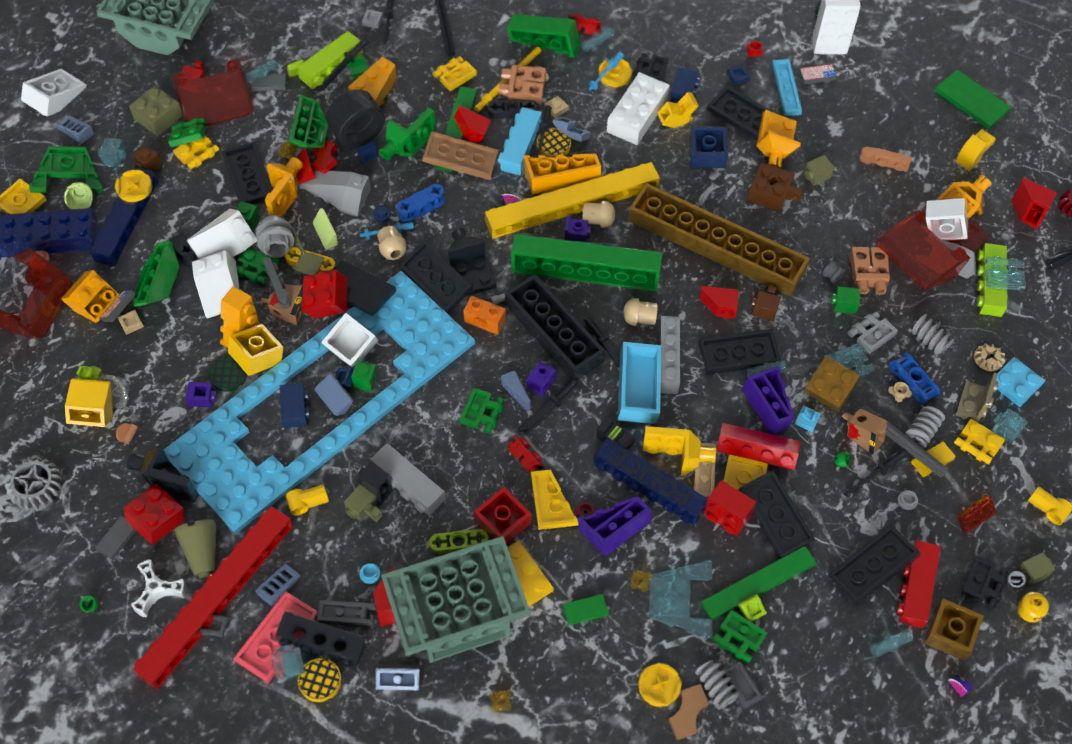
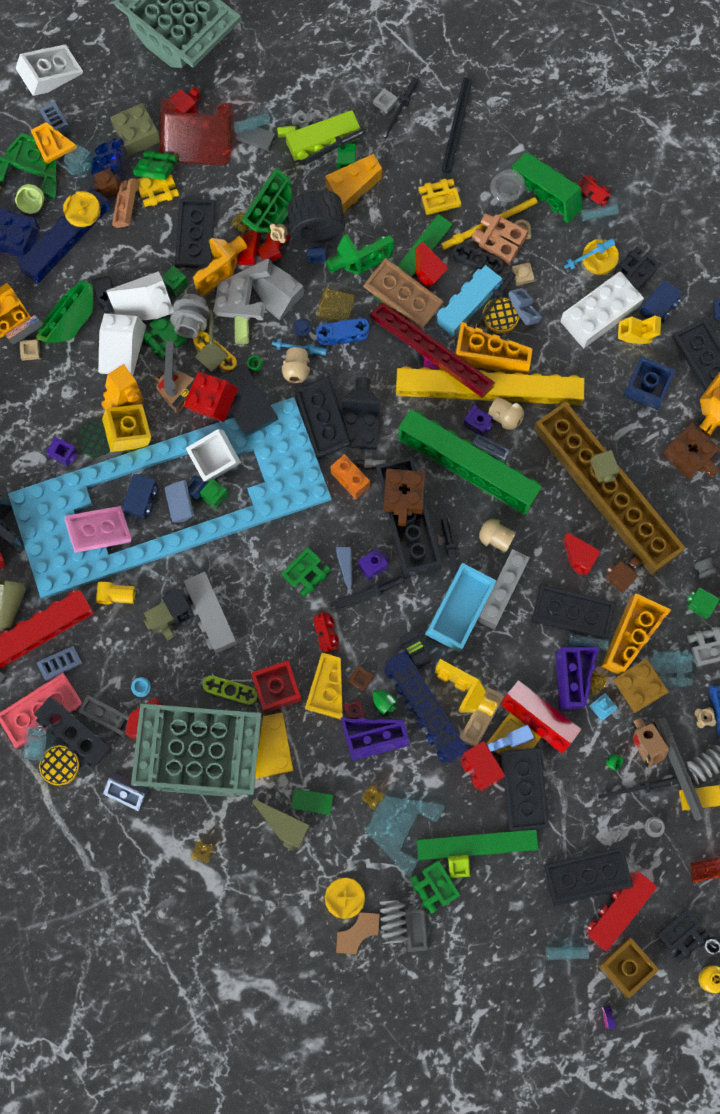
camera: 25 degrees right, 15 degrees up
(81, 143) = (51, 142): none -> light orange wing
(139, 137) = (107, 156): none -> clear blue plate
(171, 171) = (124, 203): none -> nougat hinge
(265, 446) = (97, 529): none -> bright pink plate
(309, 204) = (235, 292): none -> light grey wing
(326, 139) = (278, 232): none -> tan plate
(348, 258) = (252, 365): none -> green hinge
(402, 186) = (335, 305): none -> clear yellow piece
(509, 186) = (432, 350): none -> dark red plate
(510, 43) = (507, 185): none -> clear hat
(543, 302) = (406, 503): none -> reddish brown hinge
(570, 638) = (287, 828): none -> olive slope
(577, 482) = (361, 678): none -> reddish brown tile
(612, 490) = (384, 702): none -> green plate
(708, 217) = (605, 466): none -> olive brick
(746, 471) = (513, 738): none -> light blue piece
(795, 397) = (597, 682): none -> clear yellow plate
(801, 341) = (633, 632): none -> light orange wedge

